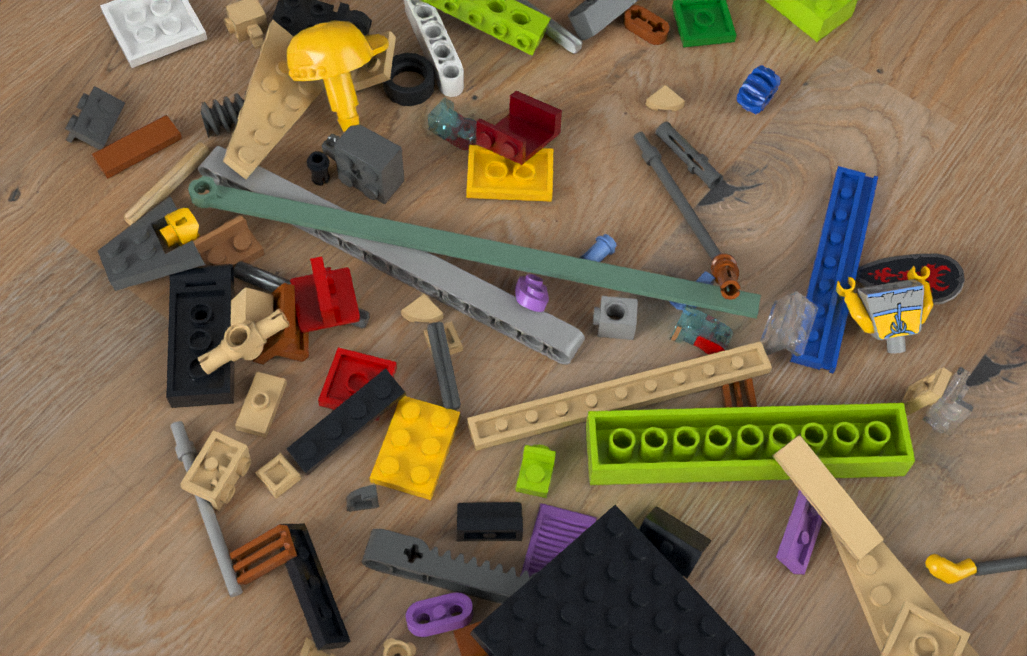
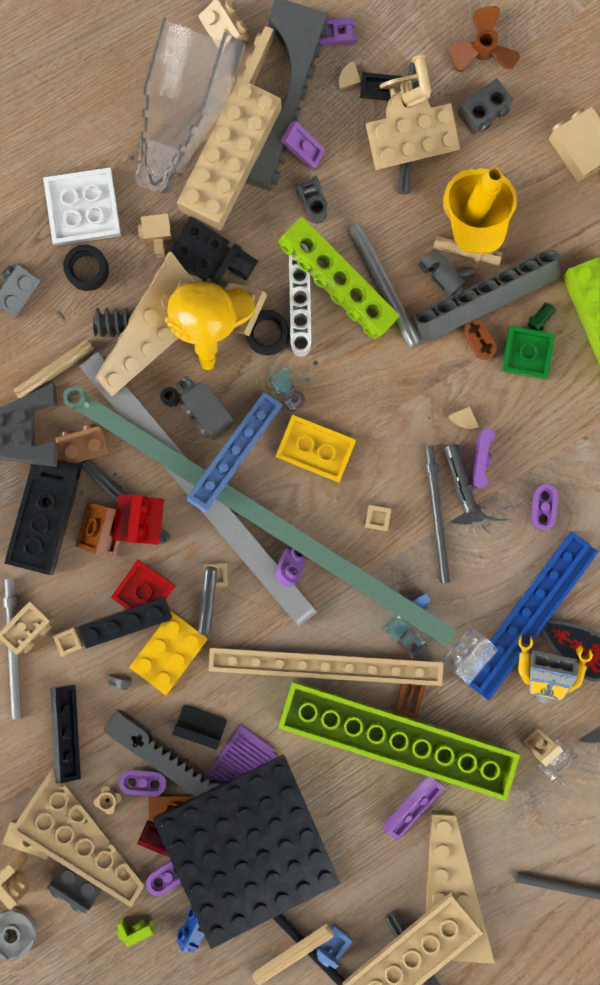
camera: 20 degrees right, 25 degrees up
(137, 146) = (40, 325): dark orange tile -> none
(176, 59) = (77, 252): none -> black tyre
(181, 227) = (44, 421): yellow piece -> none
(232, 347) = (56, 546): tan pin -> none
(242, 563) = (39, 712): dark orange tile -> none
(251, 306) = (80, 518): tan brick -> none
(261, 404) = (71, 582): tan plate -> none
(416, 192) = (234, 452): none -> medium blue plate
(422, 311) = (209, 546): tan tile -> none
(523, 131) = (335, 416): dark red panel -> none
(536, 470) = (244, 702): lime bracket -> none
(604, 246) = (356, 541): medium blue pin -> none
(613, 220) = (377, 518): none -> tan plate
(614, 306) = (357, 603): light grey brick -> none
(674, 540) = (319, 786): black panel -> none
(703, 127) = (482, 458): none -> medium lavender plate
(726, 276) = (432, 626): dark orange pin -> none
(758, 89) = (540, 441): blue gear -> none
(796, 157) = (544, 507): none -> medium lavender plate
(828, 497) = (432, 804): tan tile -> none
(947, 570) = (497, 874): yellow arm -> none

